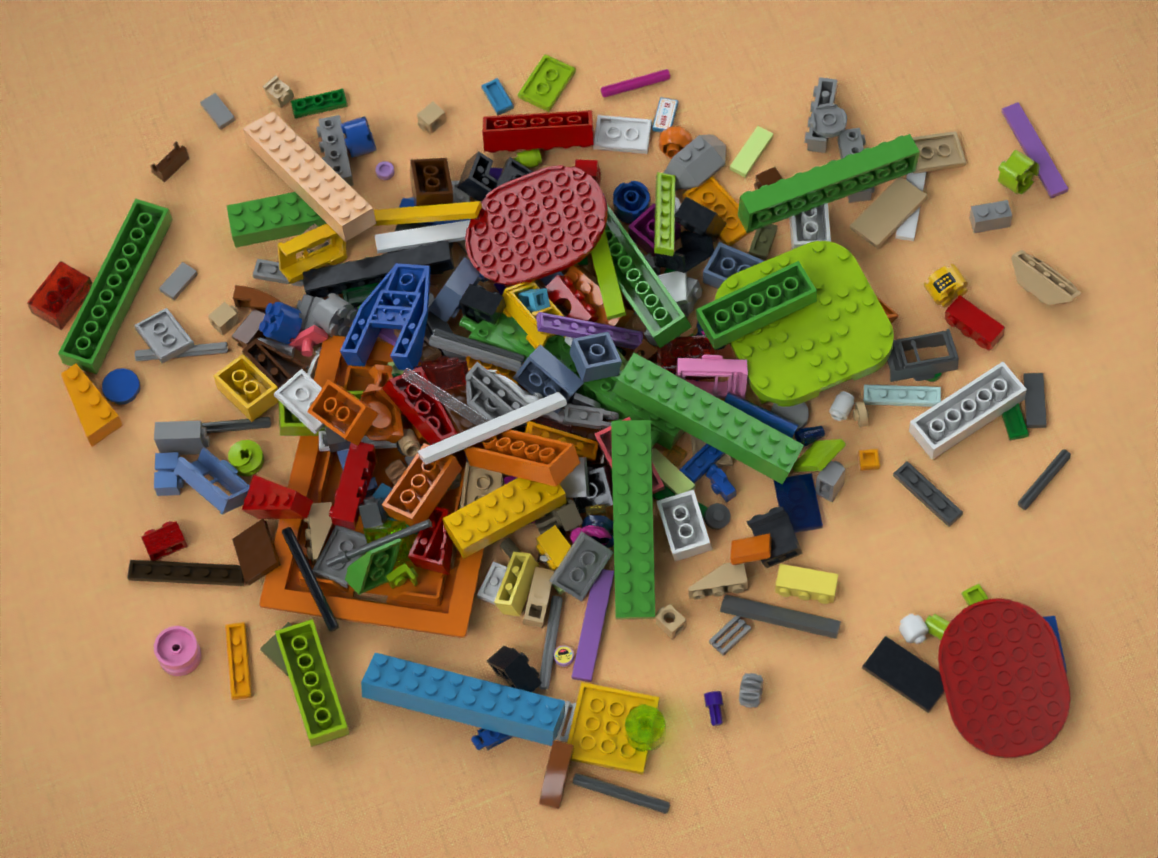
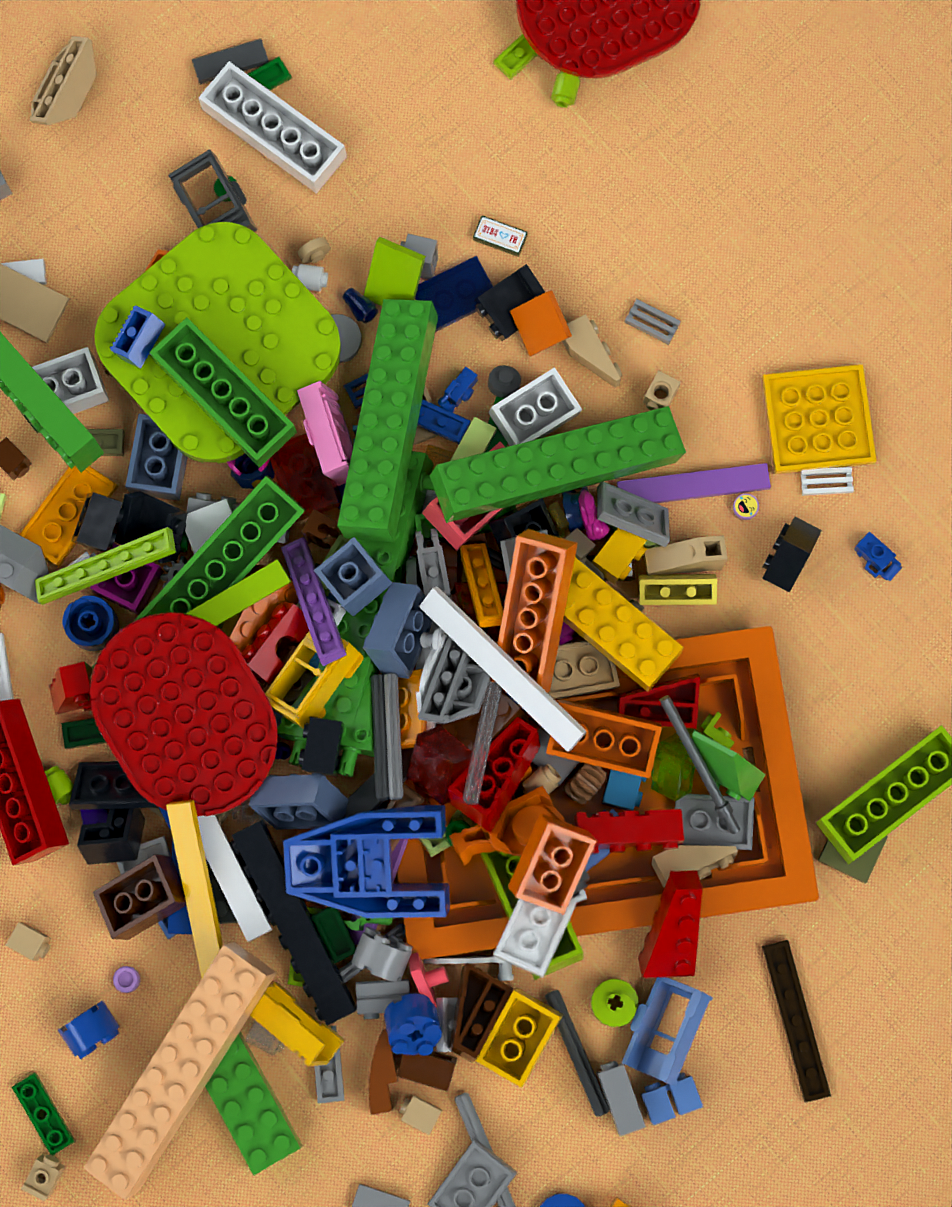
camera: 110 degrees left, 15 degrees up
(164, 540) = (766, 1066): red brick -> none
(177, 650) = (918, 969): bright pink wheel -> none
(238, 661) = (890, 905): light orange tile -> none
(256, 552) = (746, 934): reddish brown tile -> none
(310, 579) = (766, 844): black axle -> none
(334, 147) = (115, 1059): light grey brick -> none
(372, 512) = (654, 793): dark grey brick -> none
(463, 699) = (852, 601): dark azure brick -> none
(492, 583) = (682, 620): white plate -> none
(534, 299) = (292, 684): medium azure brick -> none
(550, 642) = (737, 527): light grey axle -> none
(556, 774) = (900, 461): dark orange slope -> none
(621, 793) = (893, 384): dark grey axle -> none
(645, 717) = (817, 357): clear neon green brick -> none
(714, 701) = (746, 311): dark purple piece -> none
(751, 690) = (720, 270): light grey gear -> none
(763, 415) = (357, 366): blue tile -> none
(780, 616) = (611, 269): dark grey tile -> none
(806, 583) = (560, 250): light yellow brick -> none
(816, 261) = (137, 336): none -> blue brick
(833, 548) = (500, 236): none -> tile
(869, 459) = (368, 229): light orange tile -> none
(901, 395) = (269, 212): light aqua tile -> none
(905, 674) = (634, 112): black tile -> none
(913, 629) = (578, 114): white head -> none
(928, 494) = (393, 150): dark grey tile -> none
(946, 285) = (106, 195): yellow brick -> none
(974, 323) = (146, 154): red brick -> none
(1044, 479) = (333, 24): dark grey axle -> none

